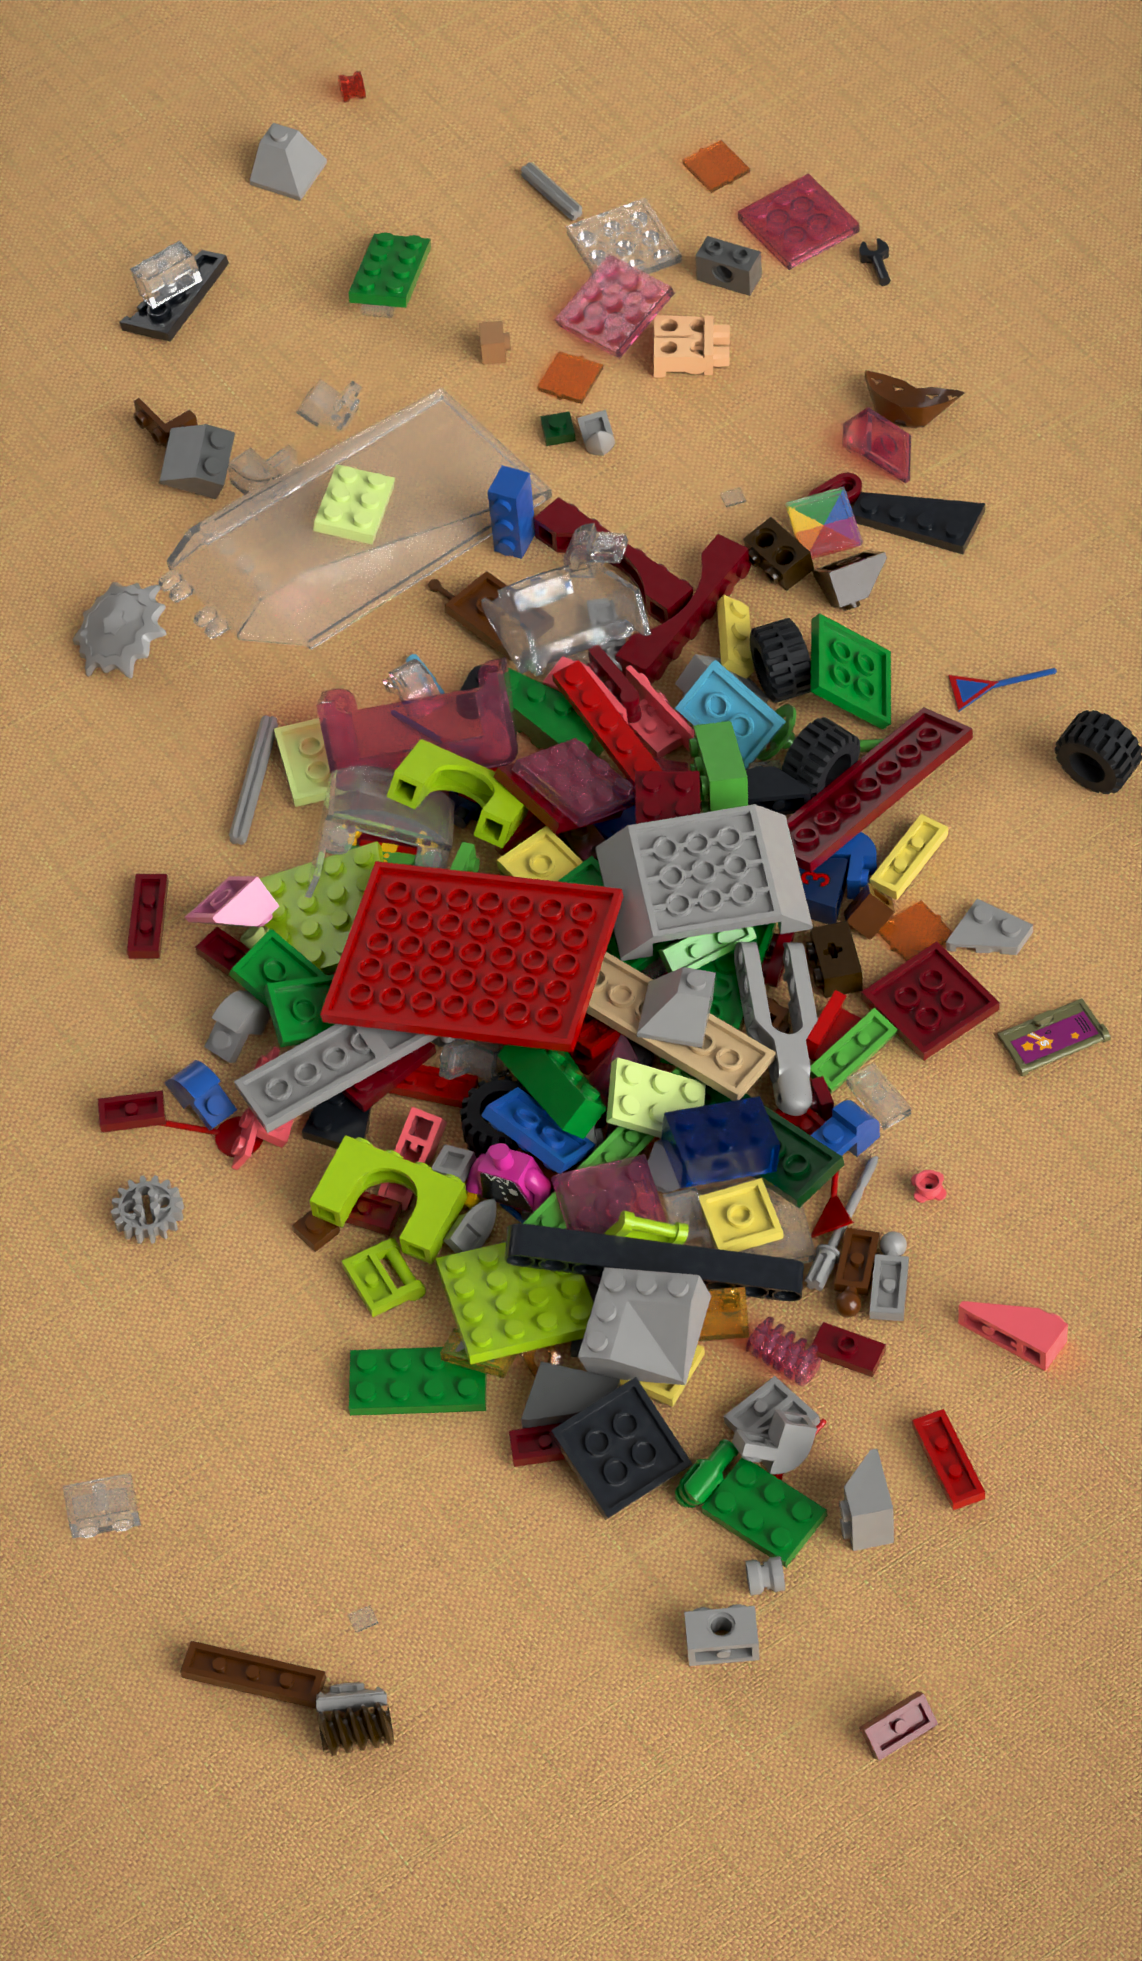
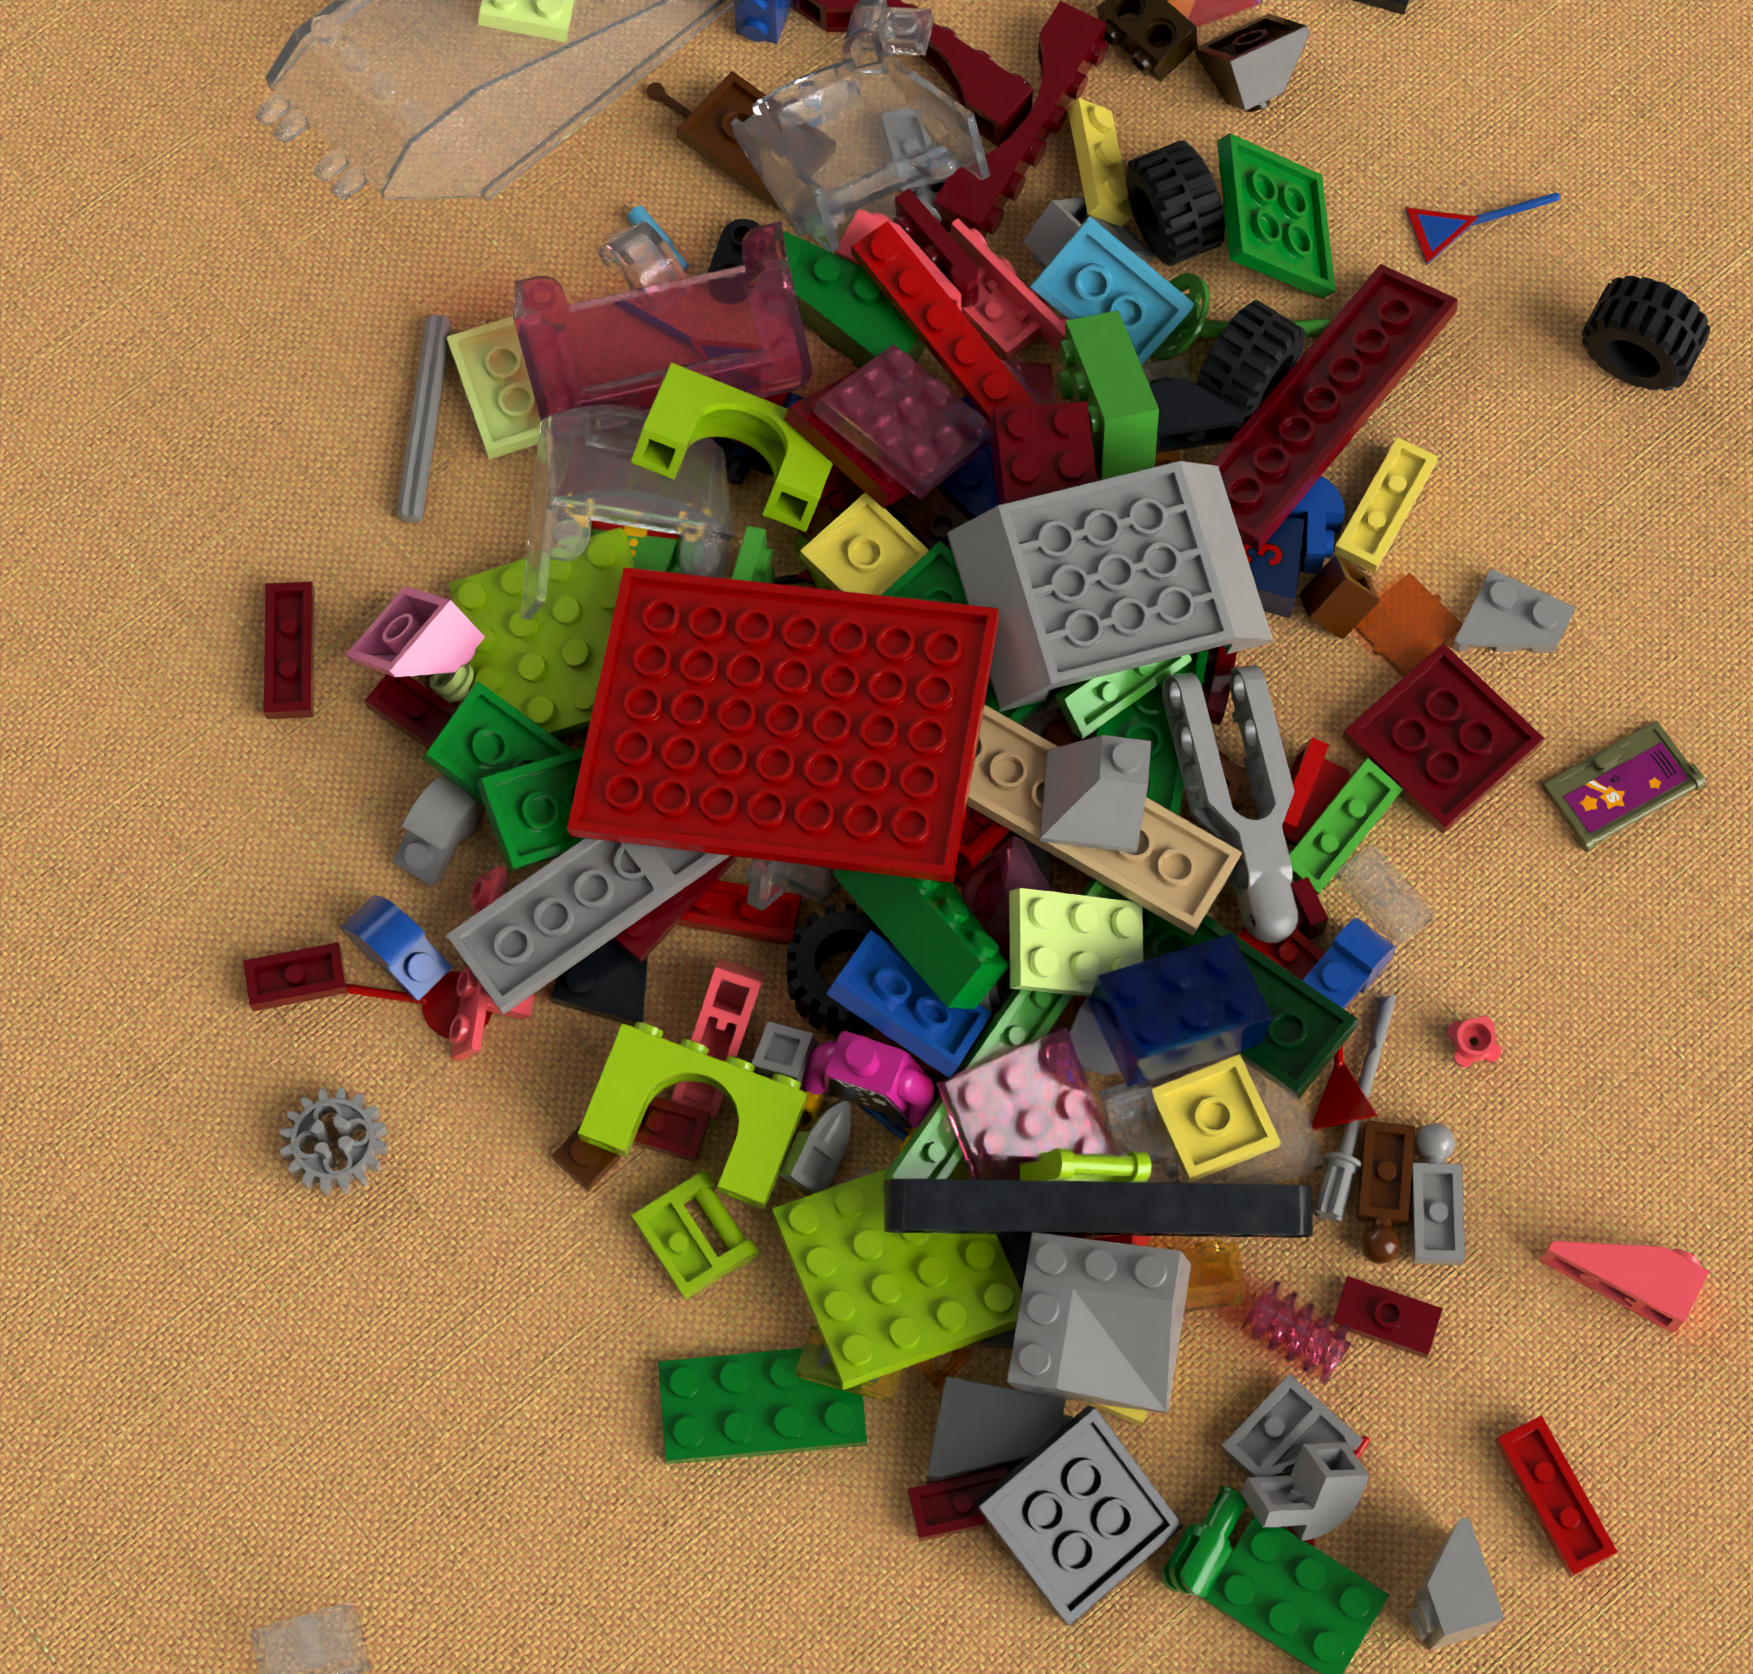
camera: 10 degrees left, 15 degrees up
(120, 628) = (206, 184): light grey piece -> none
(835, 959) = (1301, 653): dark brown brick -> none

